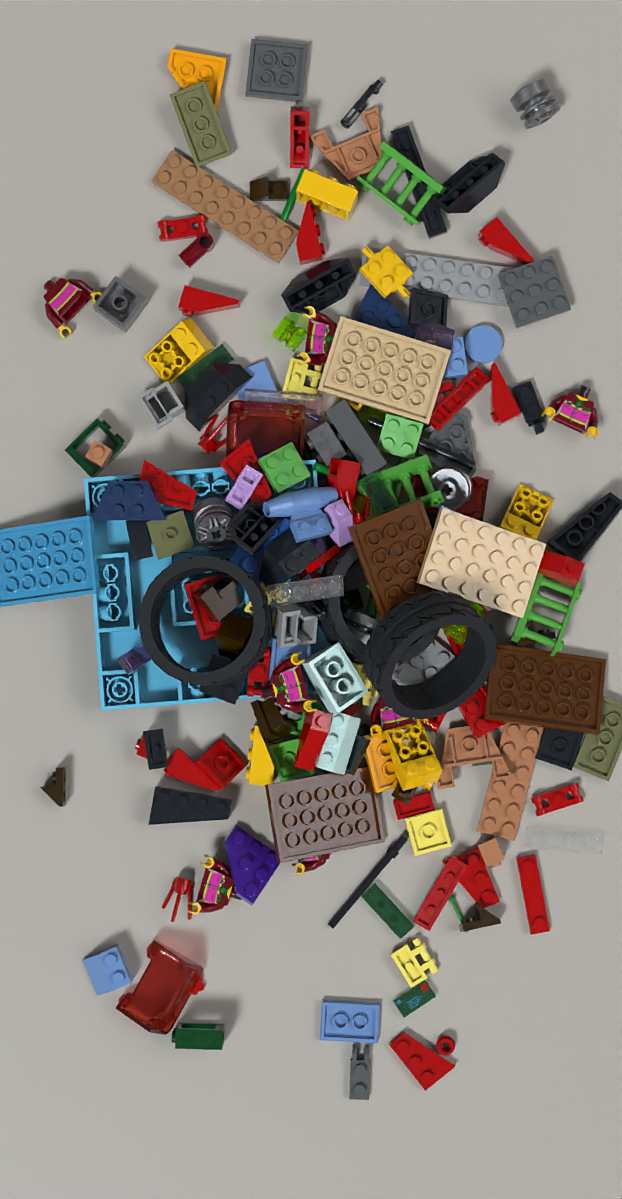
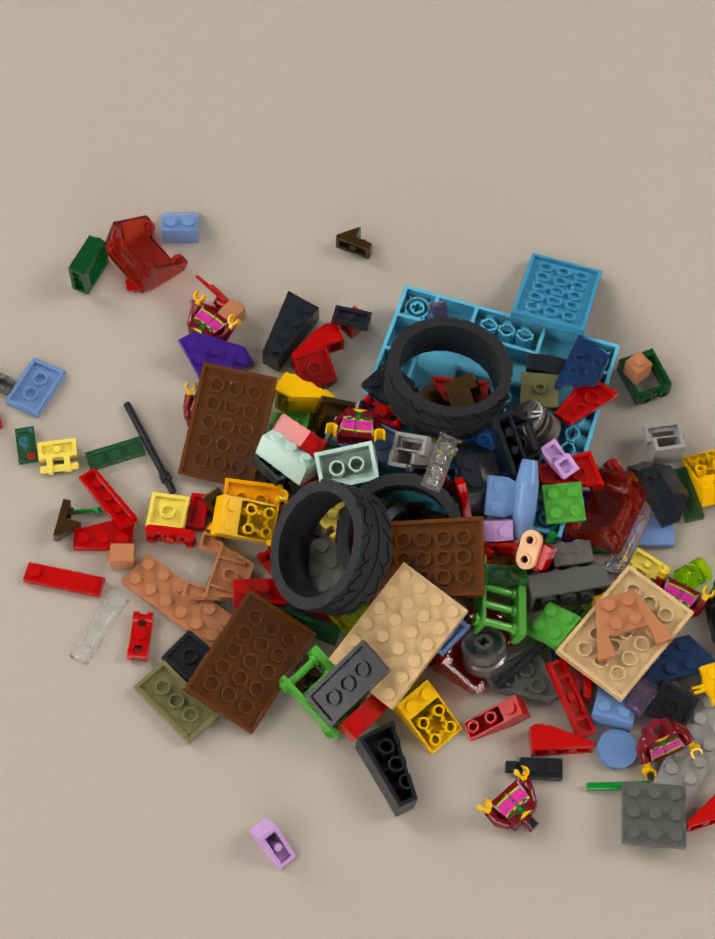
camera: 110 degrees right, 25 degrees down
(191, 870) = (235, 308): none -> nougat brick
(350, 480) = (530, 550): none -> light nougat plate
(373, 378) = (623, 615): none -> nougat wing
(451, 818) = (170, 535): none -> red plate
(465, 306) = (661, 740): none -> dark red torso
(500, 455) = (497, 718): none -> red slope
(515, 332) = (604, 786): none -> green bar
(541, 589) = (347, 683): none -> black plate

